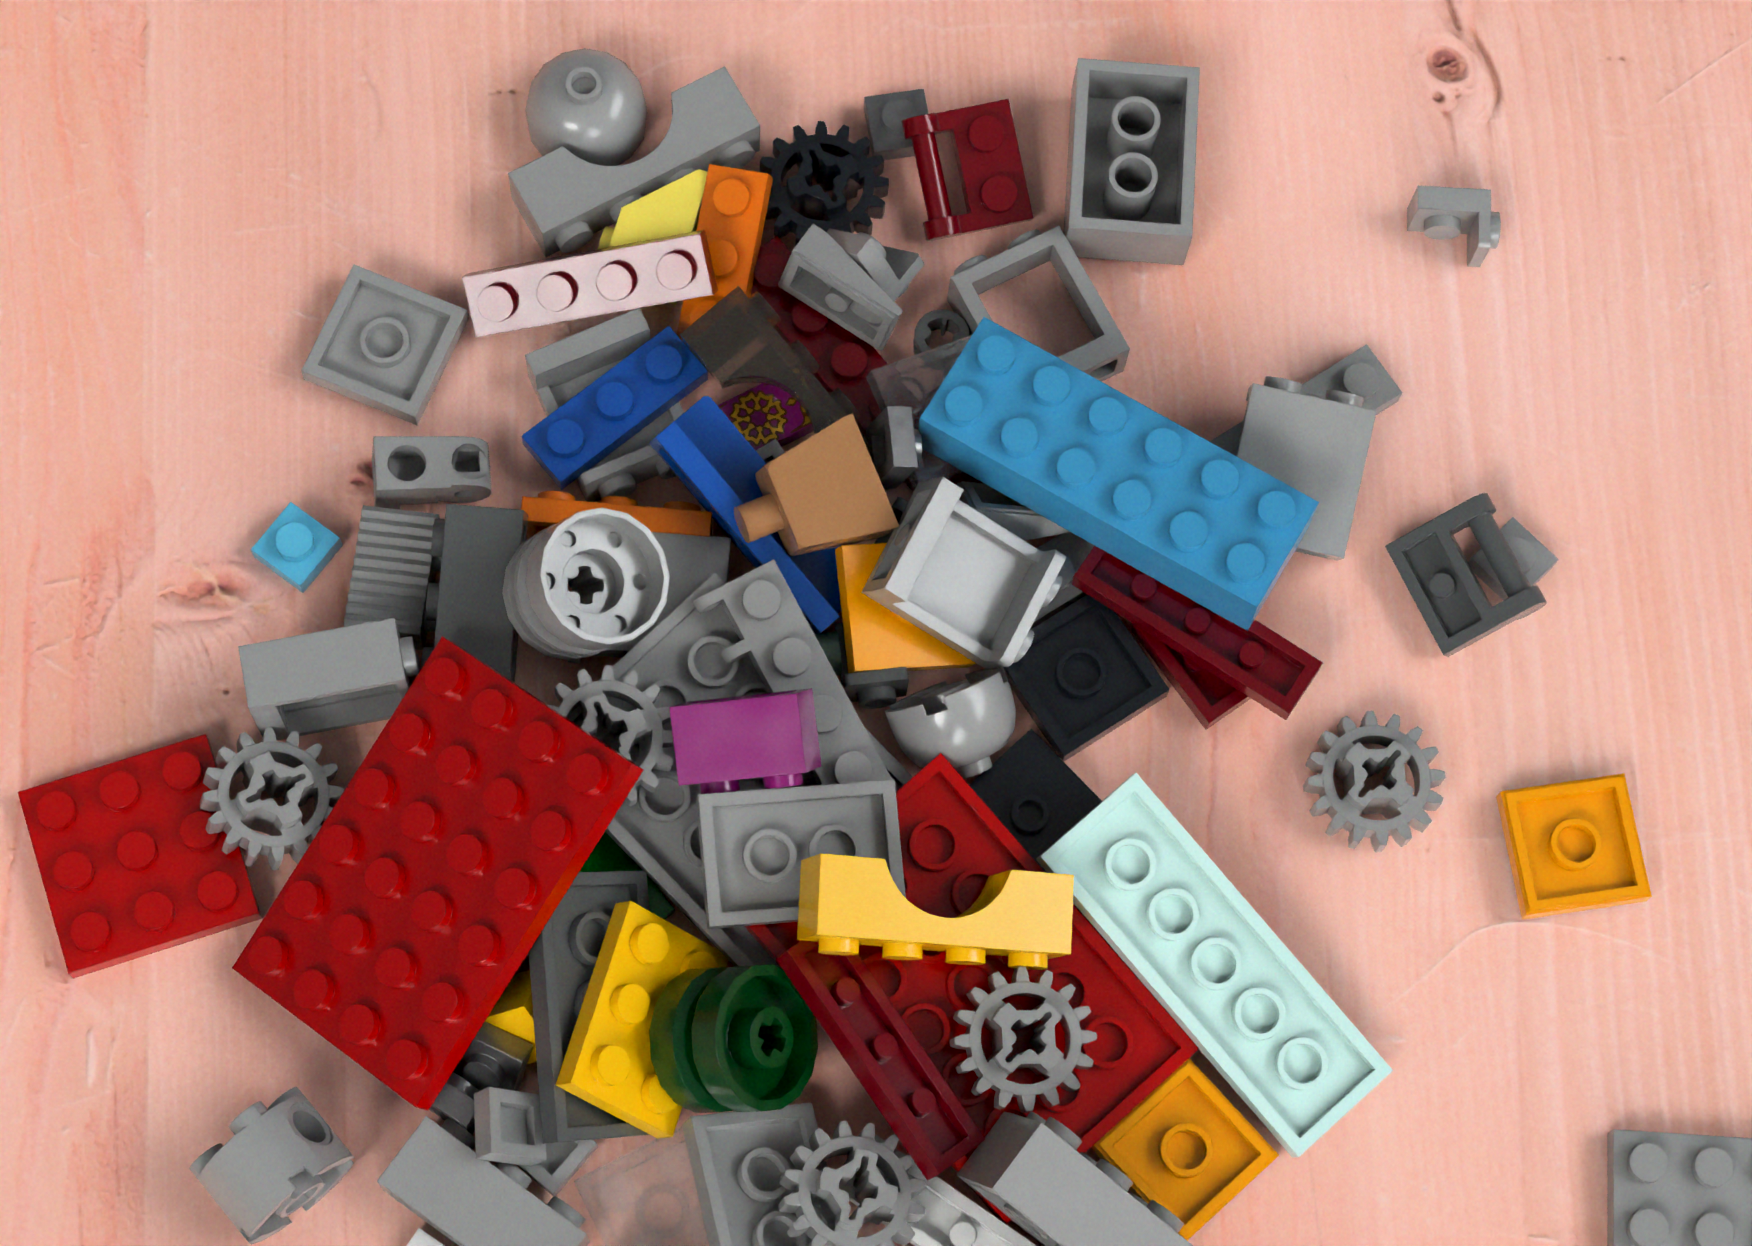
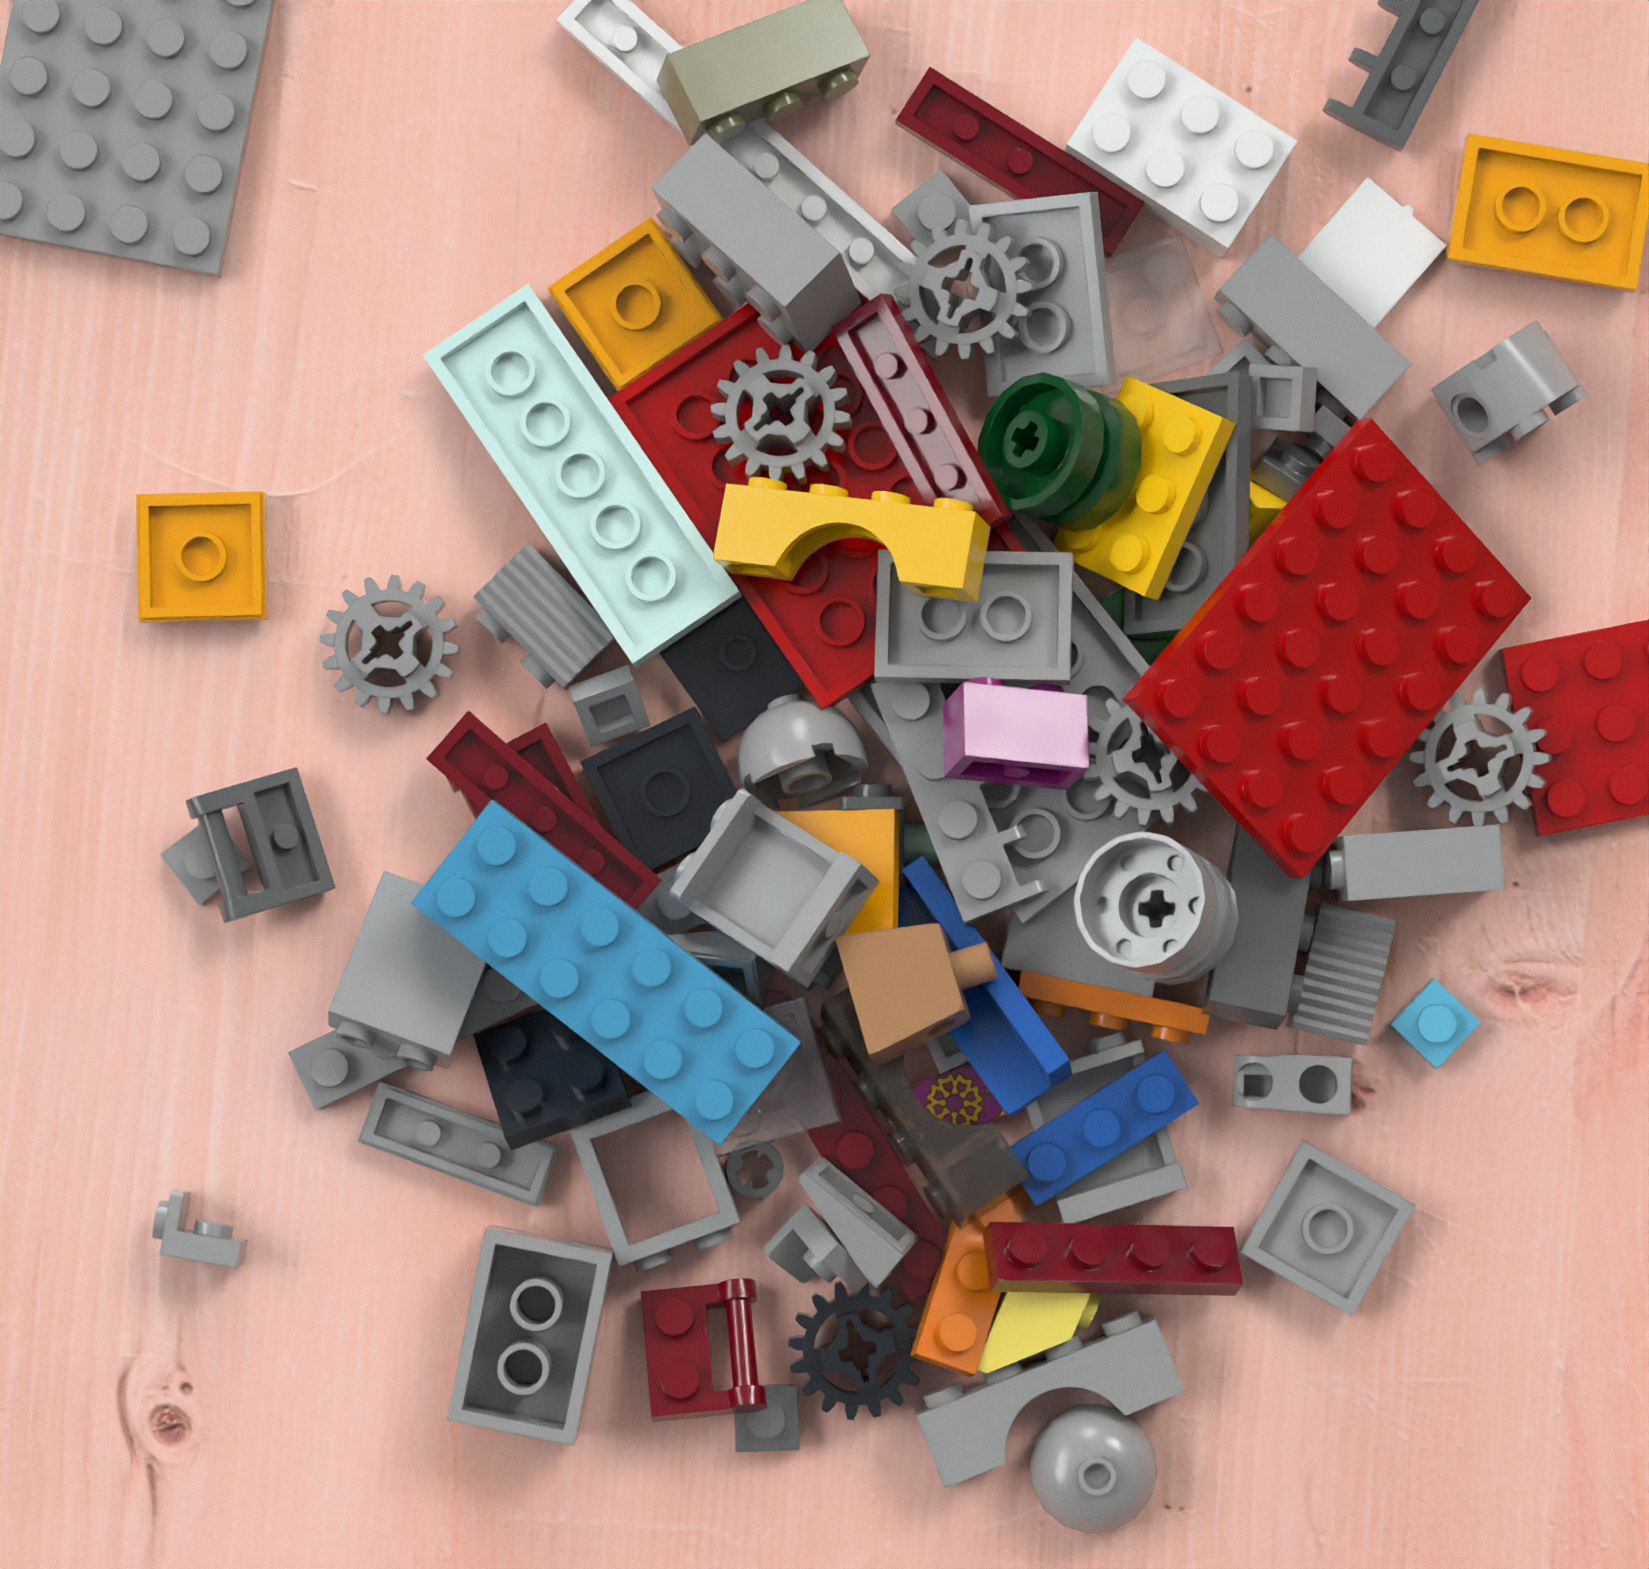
camera: 165 degrees left, 15 degrees up
(894, 445) = (827, 1026): flat silver plate -> none
(1149, 747) = (609, 705): none -> light grey plate
(1163, 373) = (547, 1078): none -> black plate
(1225, 333) = (456, 1144): none -> light grey tile
(1231, 823) = (545, 617): none -> light grey brick

